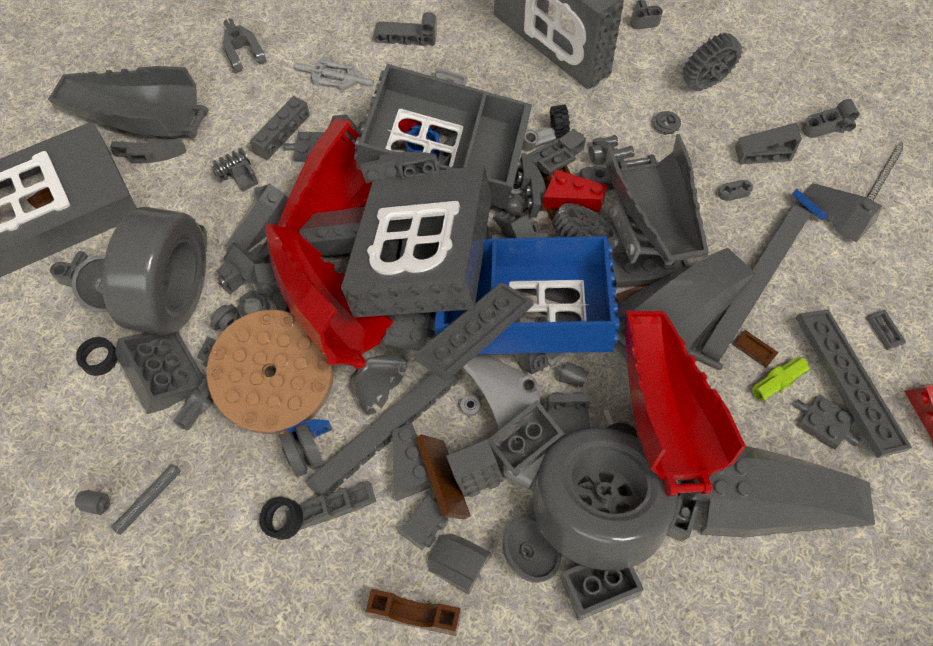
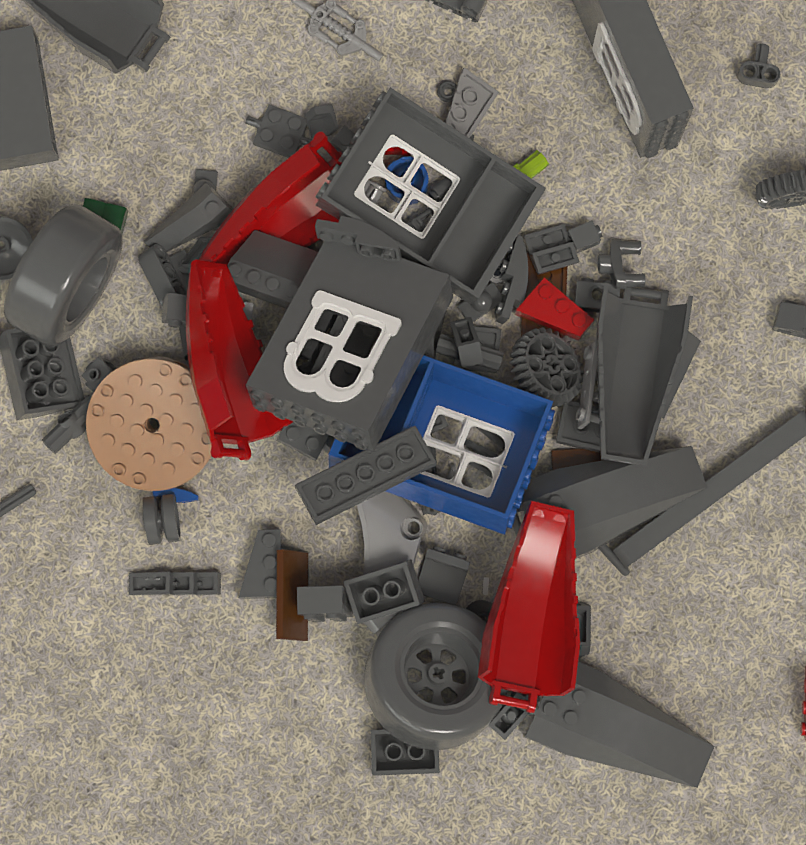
camera: 20 degrees right, 20 degrees up
(152, 151) = (91, 76): dark grey slope -> none
(223, 167) = (176, 129): dark grey piece -> none
(223, 317) = (122, 336): dark grey piece -> none
(229, 278) = (138, 285): dark grey brick -> none
(244, 175) = (189, 150): dark grey panel -> none
(252, 303) = (153, 333): dark grey hair -> none
(267, 514) = (108, 577): black tyre -> none
(280, 128) = (248, 94): dark grey brick -> none
(375, 380) = (261, 465): dark grey piece -> none
(379, 434) = (231, 531): dark grey beam -> none
(398, 610) = (221, 716): reddish brown arch -> none
(424, 524) = (258, 635): dark grey brick -> none
(458, 561) = (279, 680): dark grey slope -> none
(470, 405) = (348, 524): light grey tile -> none
(538, 138) = (551, 214): light grey piece -> none
(540, 559) = (353, 711): dark grey dish -> none
(559, 120) = (581, 202): black tyre -> none
(572, 374) = (466, 530): dark grey brick -> none
(673, 120) = (722, 240): dark grey gear -> none
(735, 191) = (747, 370): dark grey beam -> none
(755, 348) = (673, 566): reddish brown tile -> none
(780, 378) = (680, 609): lime piece -> none
(827, 422) = (705, 671): dark grey plate -> none
(853, 383) = (751, 638): dark grey plate -> none

